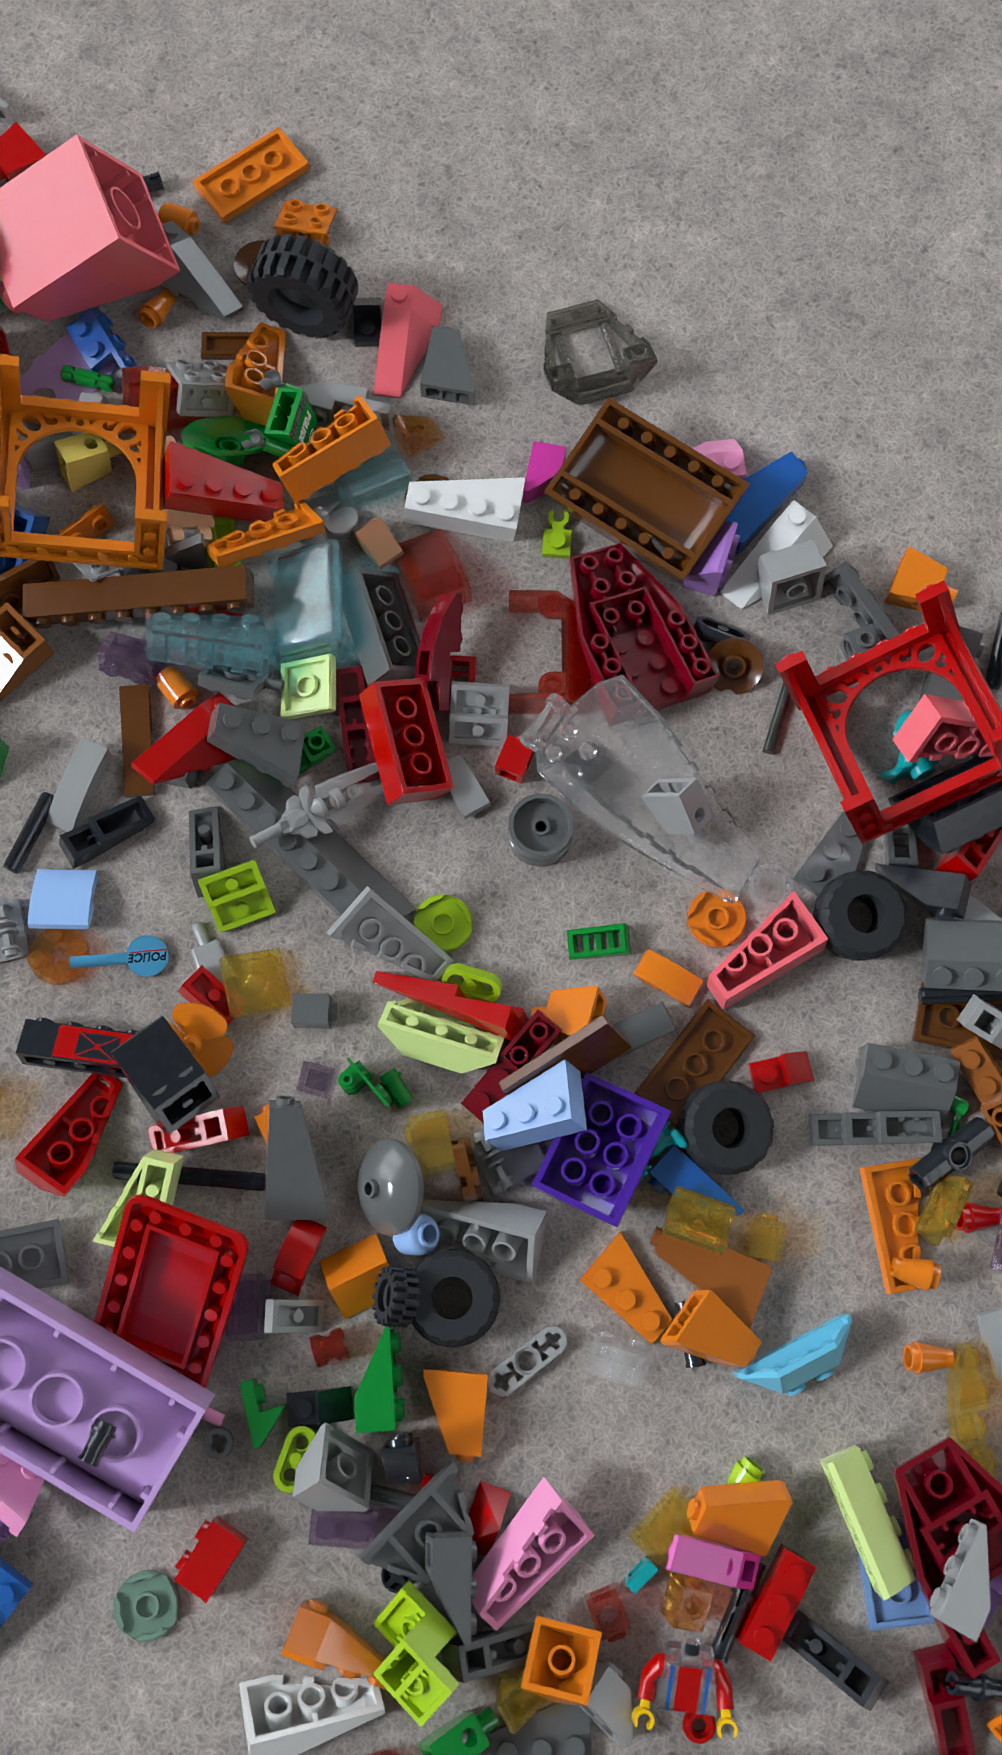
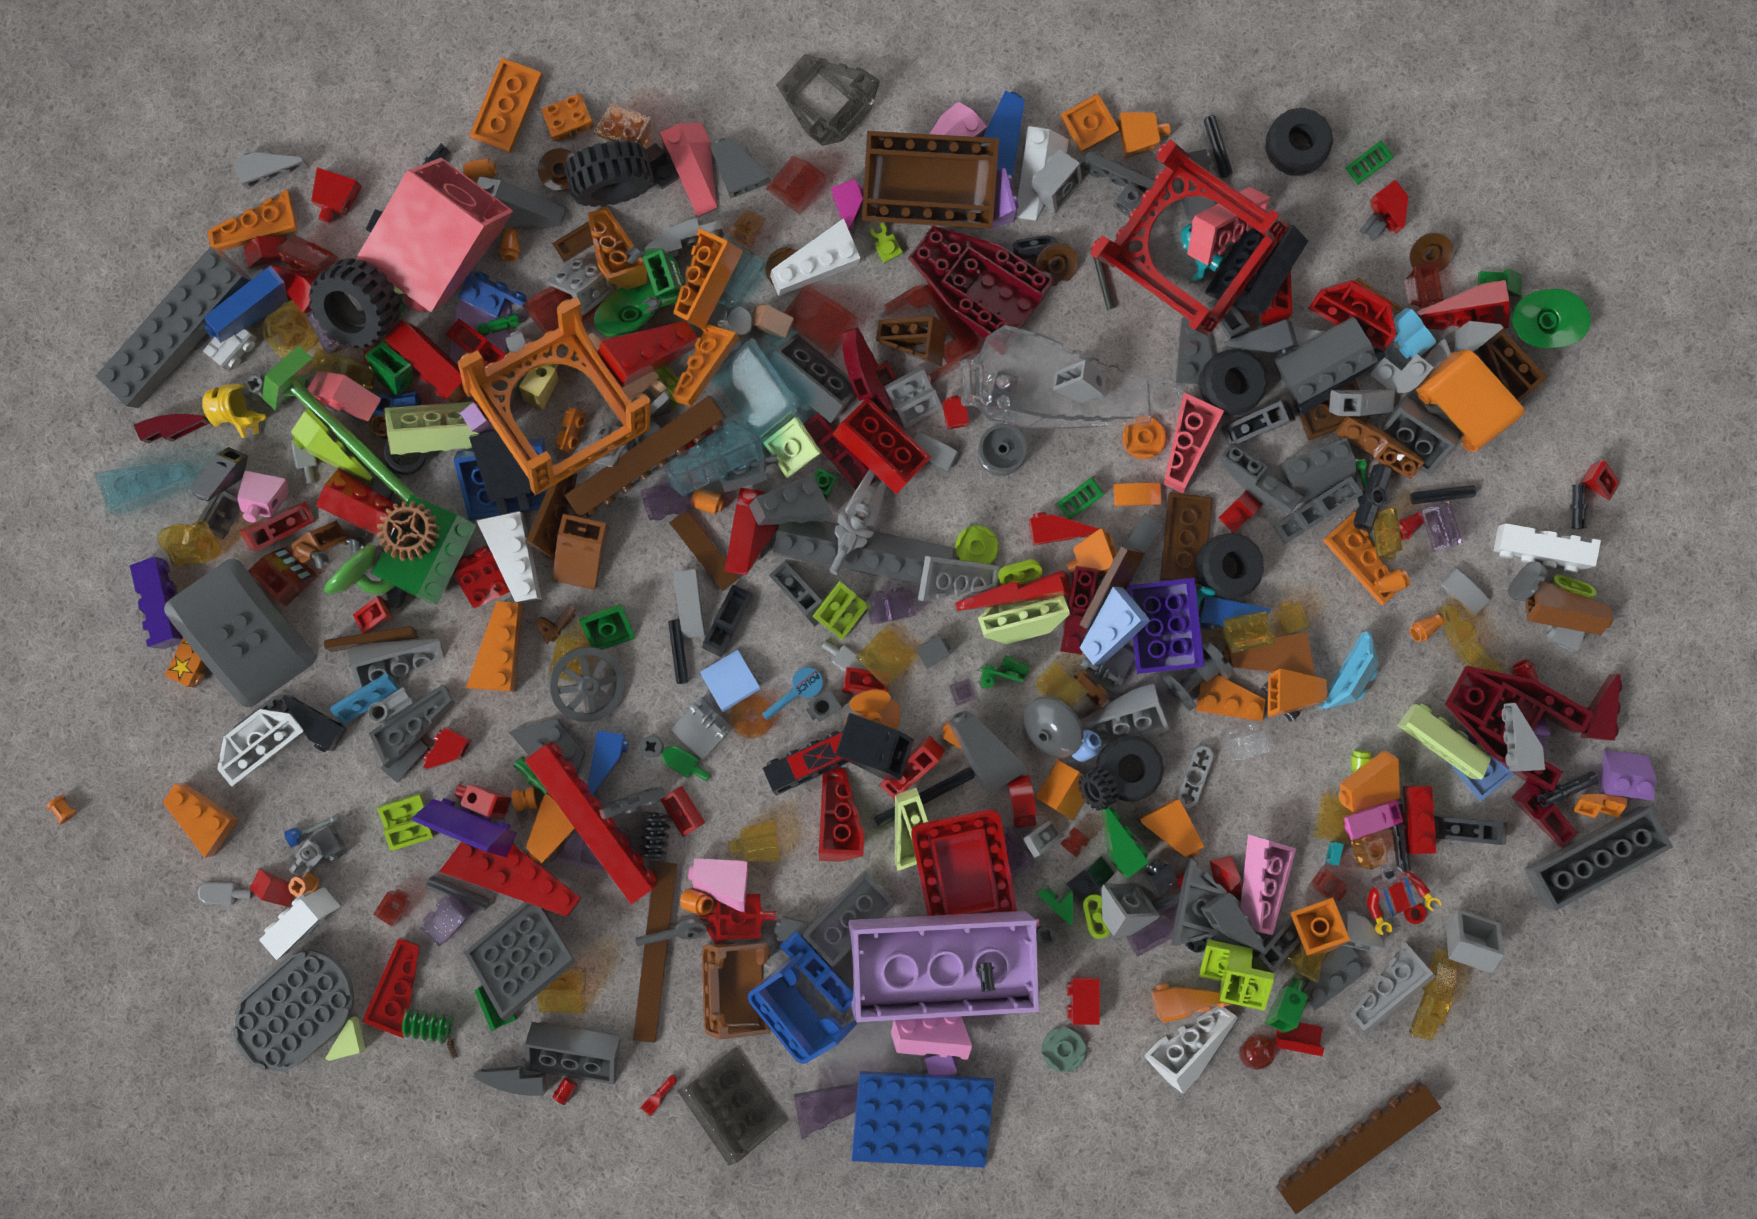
camera: 30 degrees left, 10 degrees up
(46, 374) = (472, 341): none -> red slope
(159, 993) = (827, 696): none -> dark grey brick
(297, 927) = (890, 606): none -> clear purple brick
(361, 255) = (624, 124): none -> clear orange slope
(502, 422) = (797, 184): none -> clear red slope
(521, 644) = (915, 336): none -> reddish brown wedge
(544, 956) = (1052, 529): none -> red slope
(628, 1235) = (1213, 665): none -> dark grey piece
(818, 1043) = (1253, 478): none -> dark grey slope
(864, 982) = (1259, 423): none -> black slope
(867, 540) = (1089, 123): none -> orange plate

